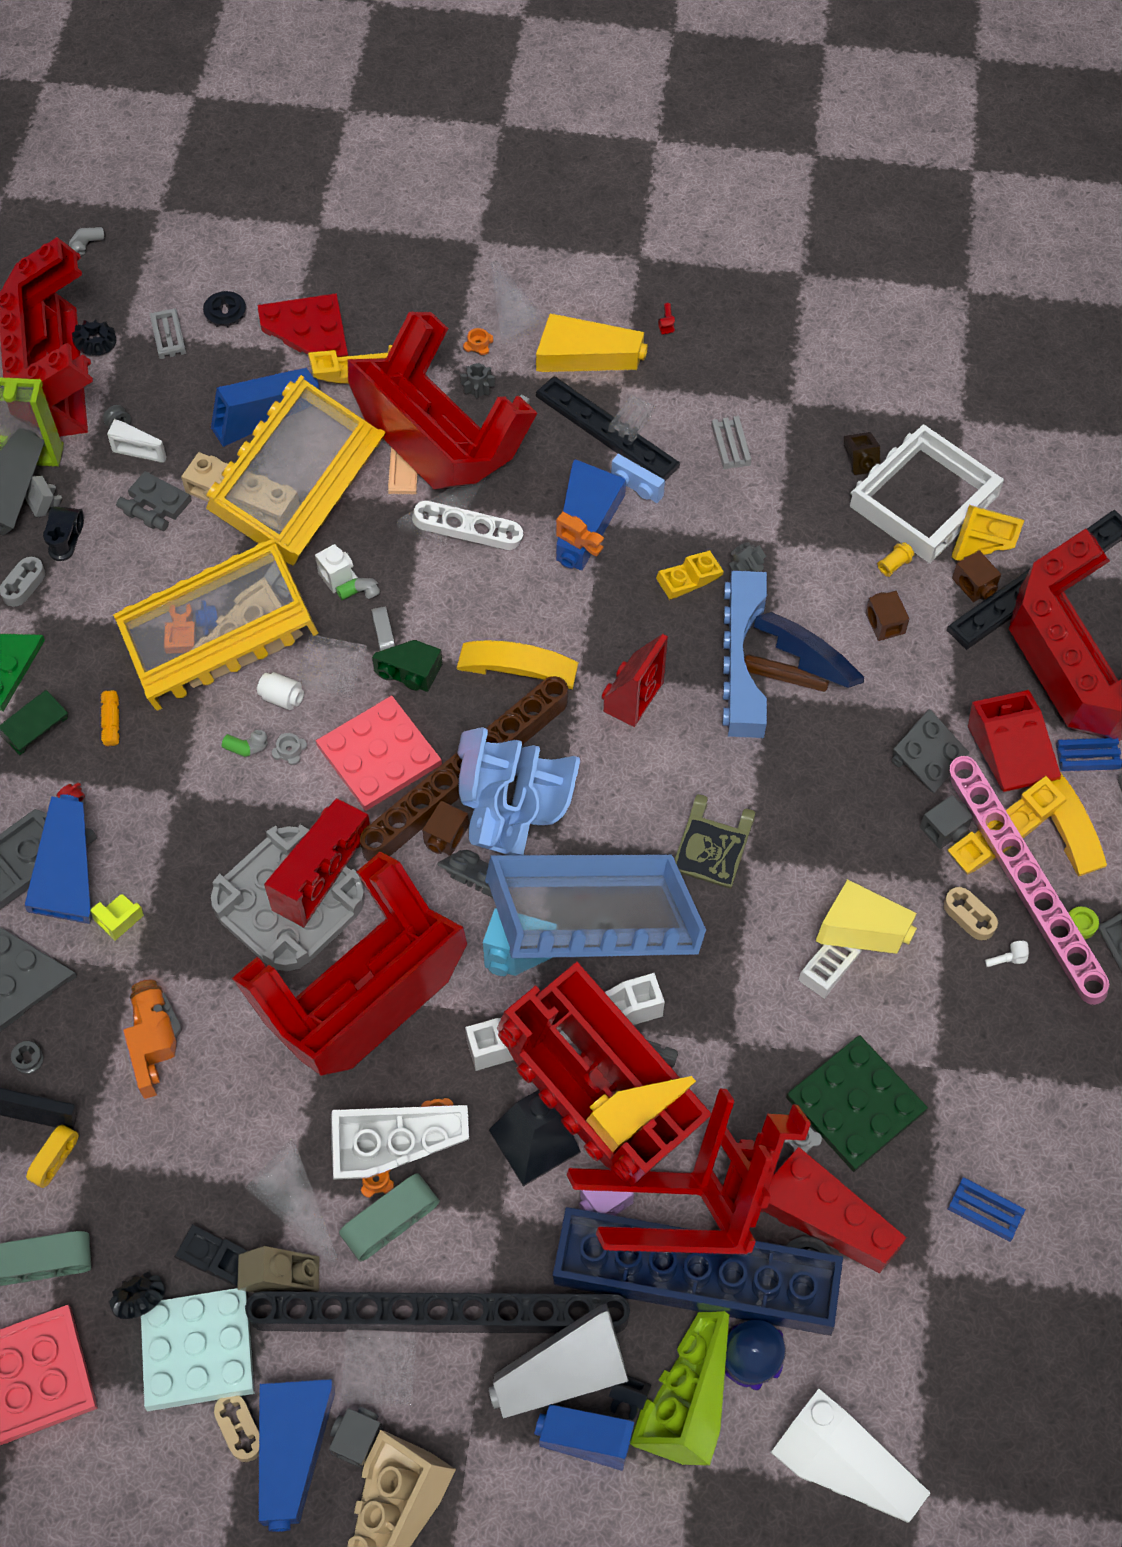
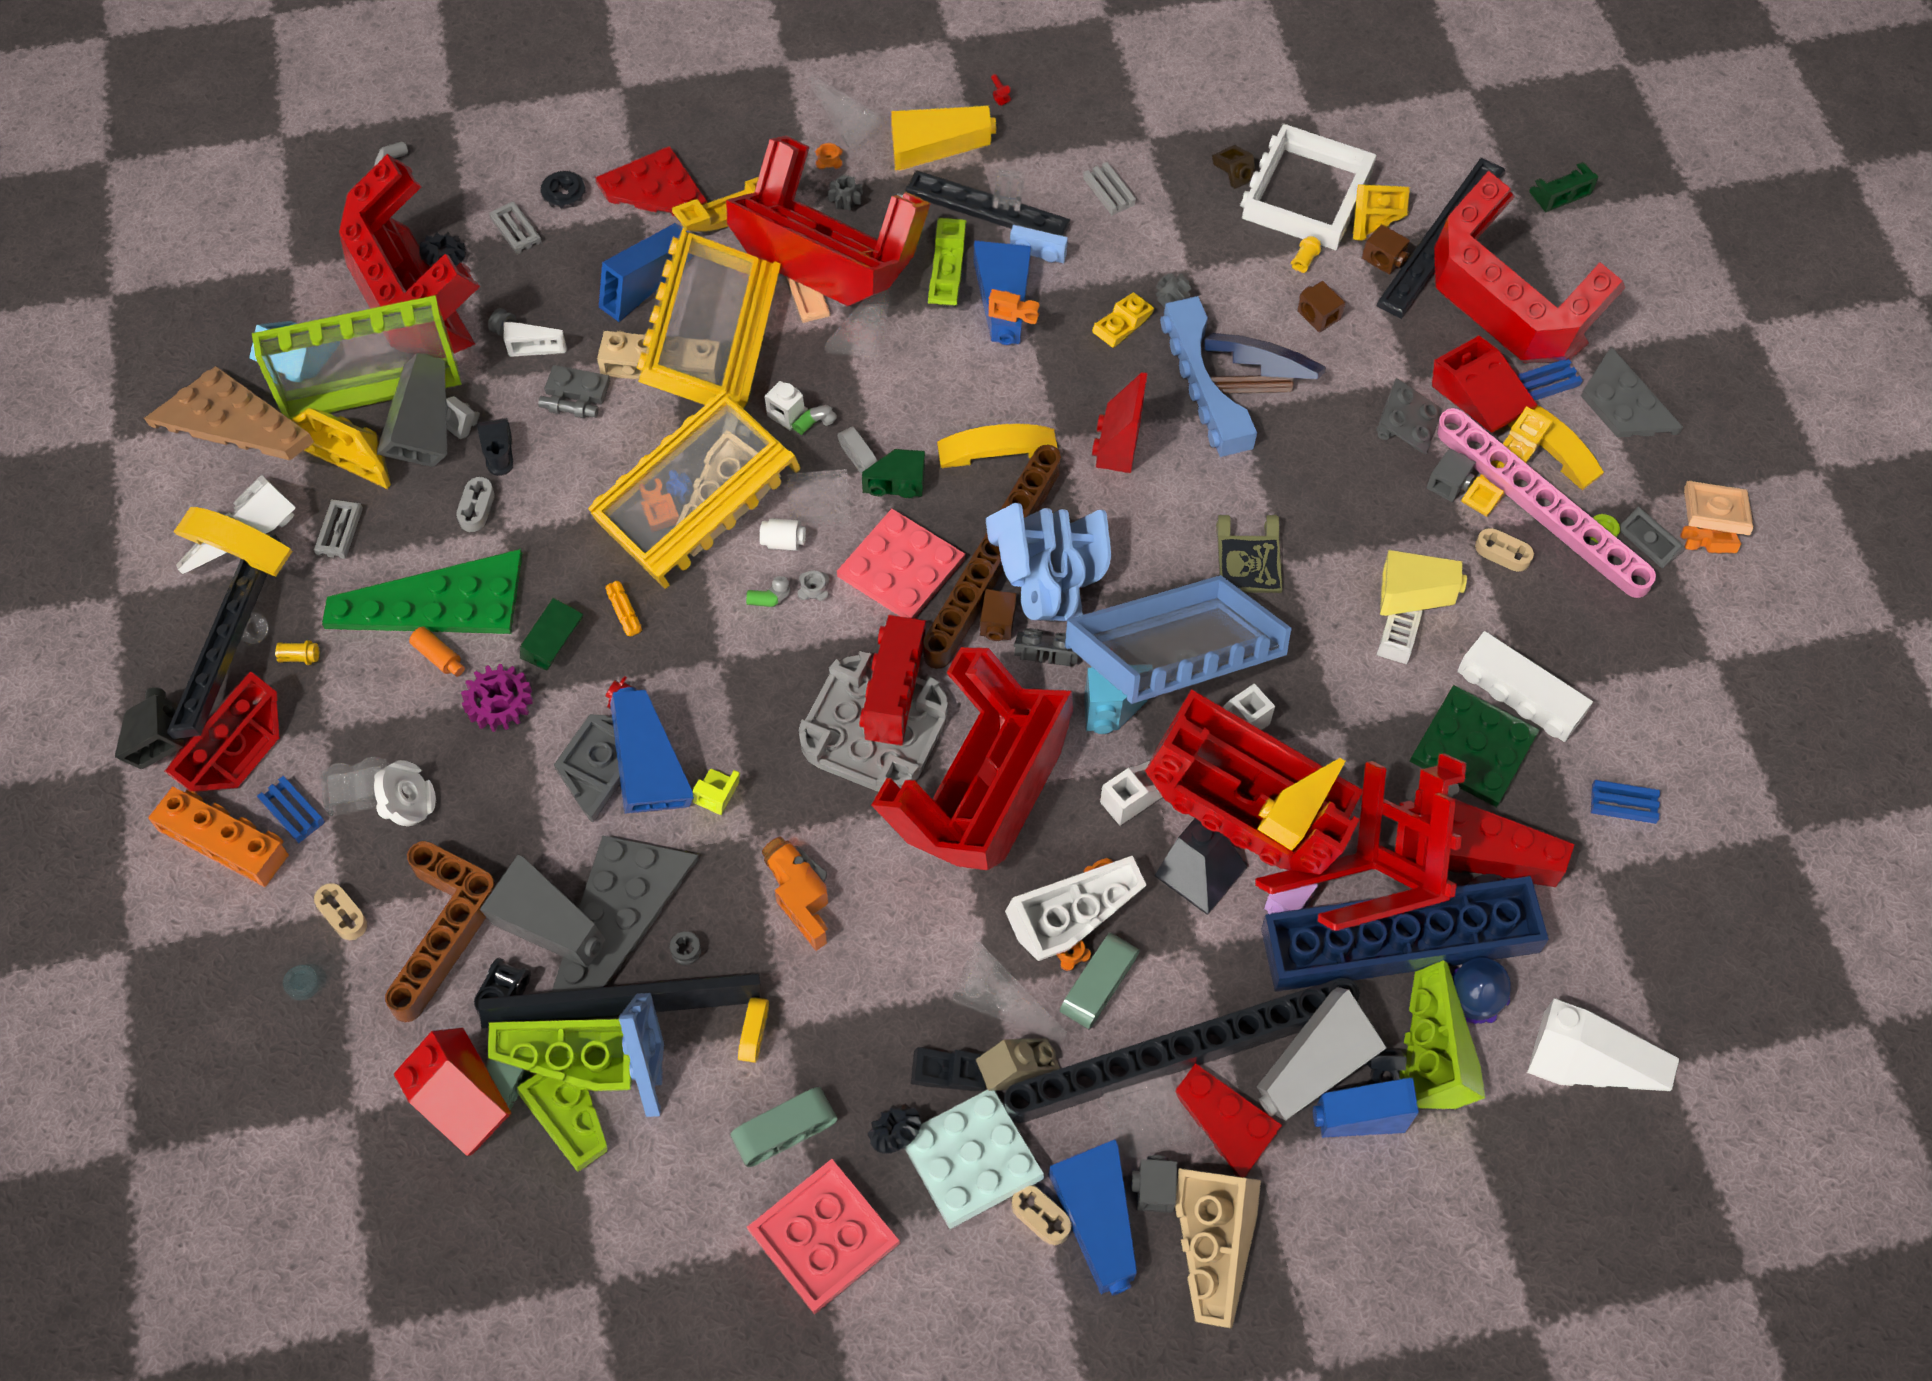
camera: 20 degrees left, 0 degrees up
(455, 1397) = (1228, 1119): none -> red wing
(468, 520) = (897, 334): white beam -> none
(545, 474) = (947, 262): none -> lime slope
(928, 1060) = (1524, 686): none -> white brick
(1018, 955) = (1560, 571): white hand -> none

